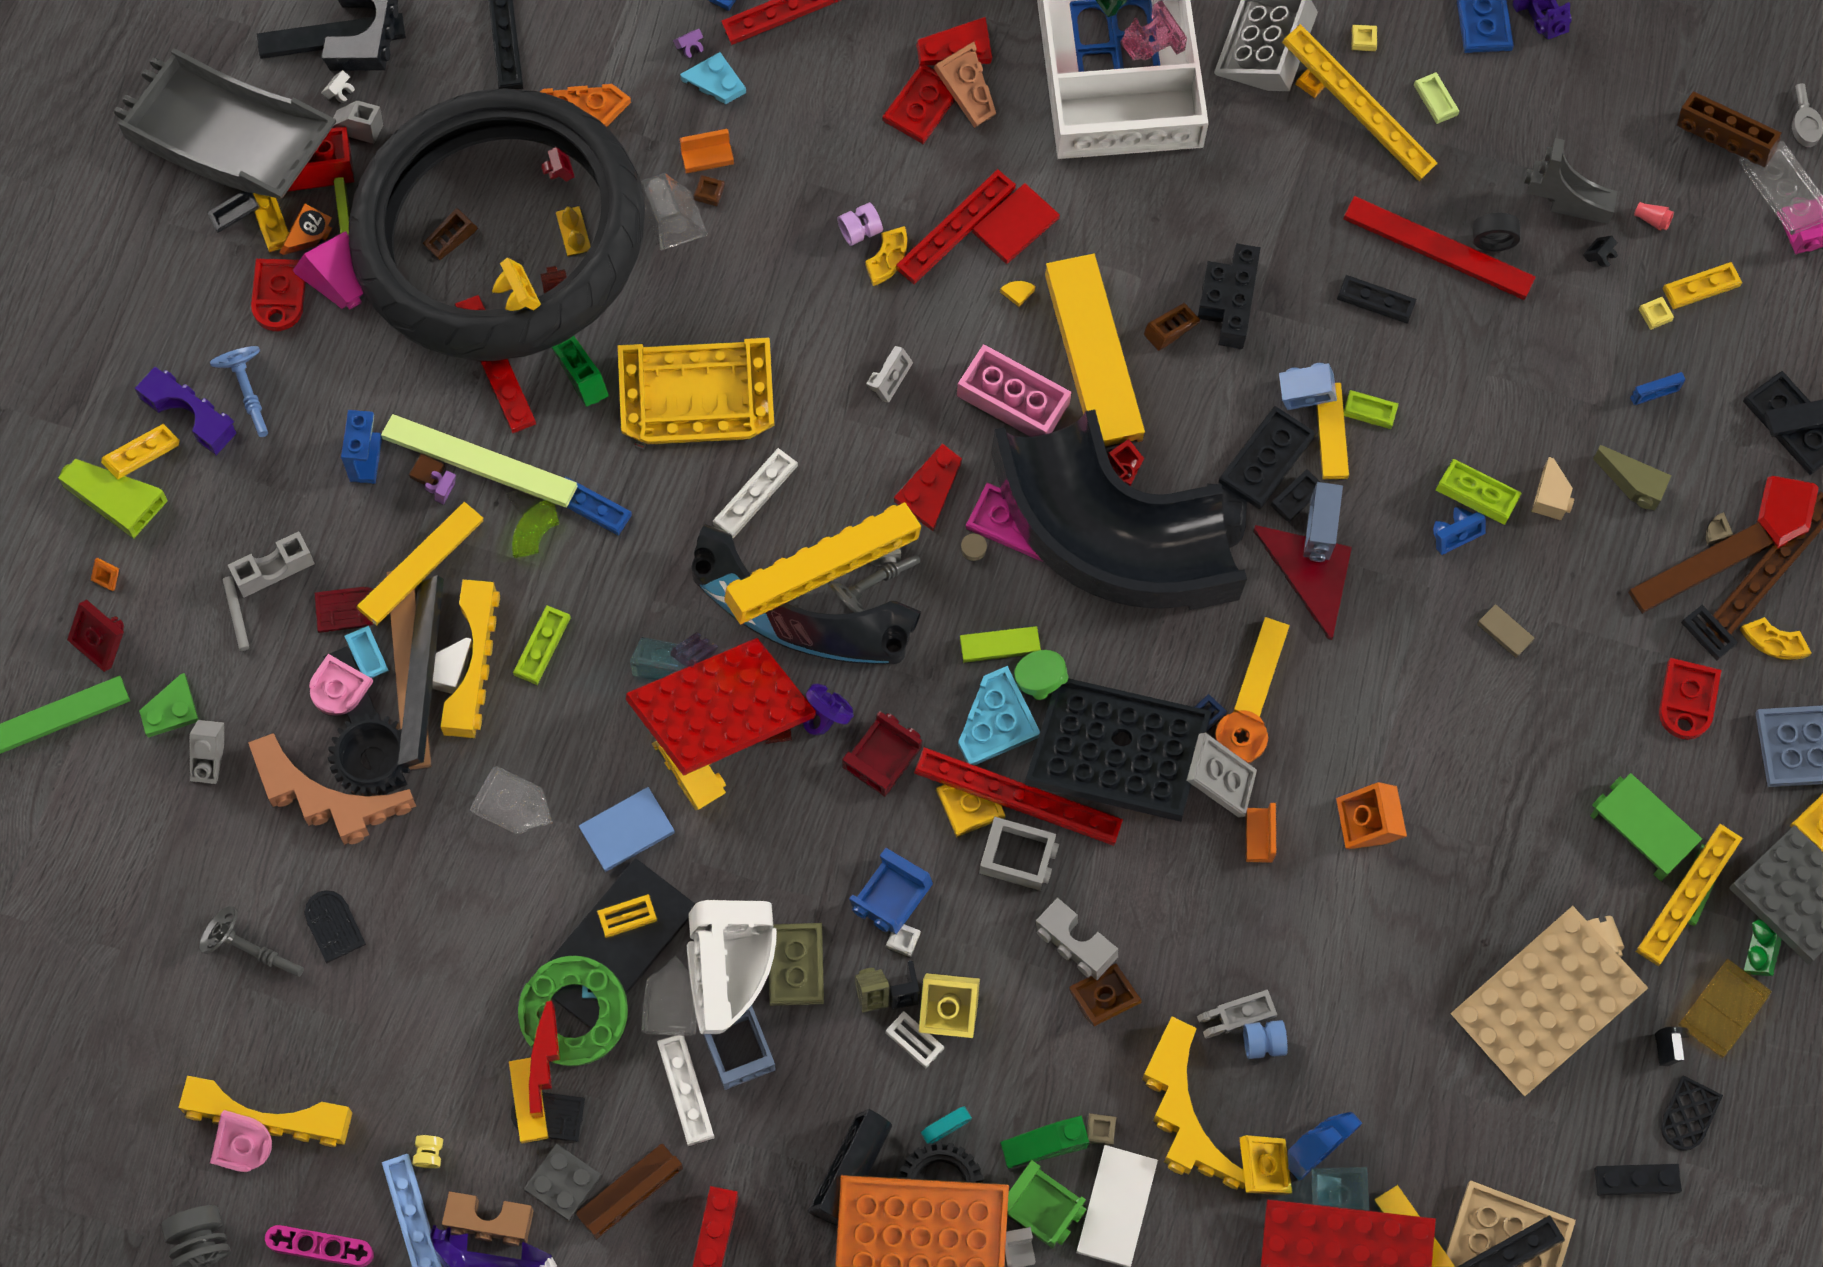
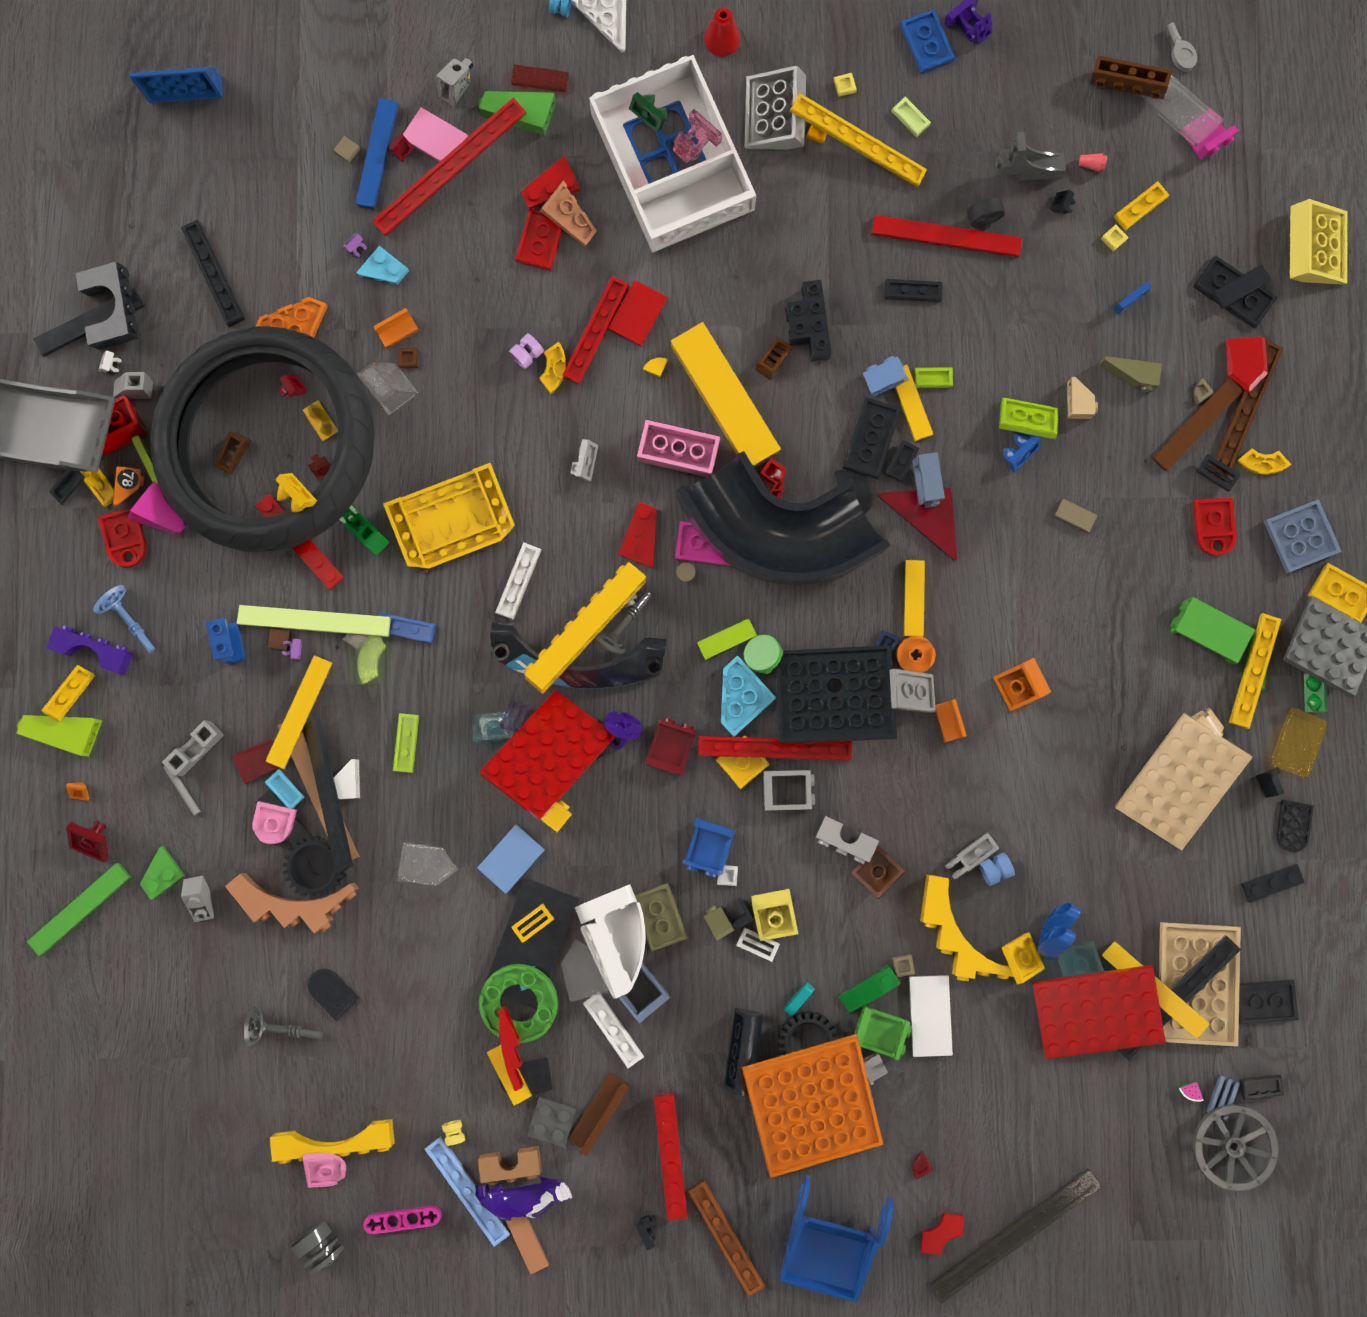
camera: 15 degrees left, 15 degrees up
(461, 709) = (351, 731): yellow arch -> none

